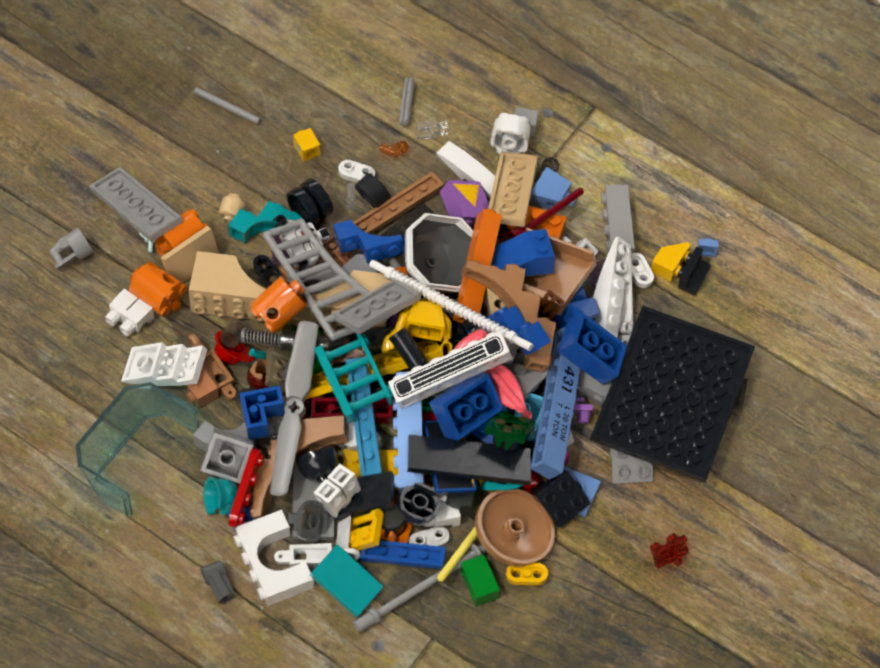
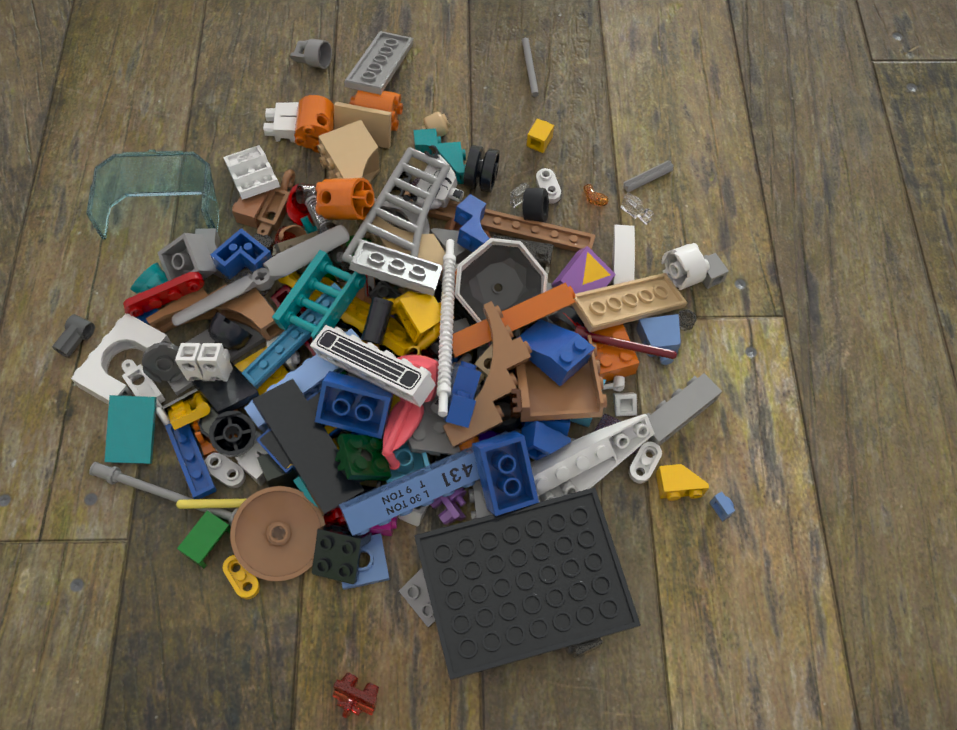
camera: 55 degrees right, 5 degrees up
(694, 272) = (683, 511): black bracket -> none

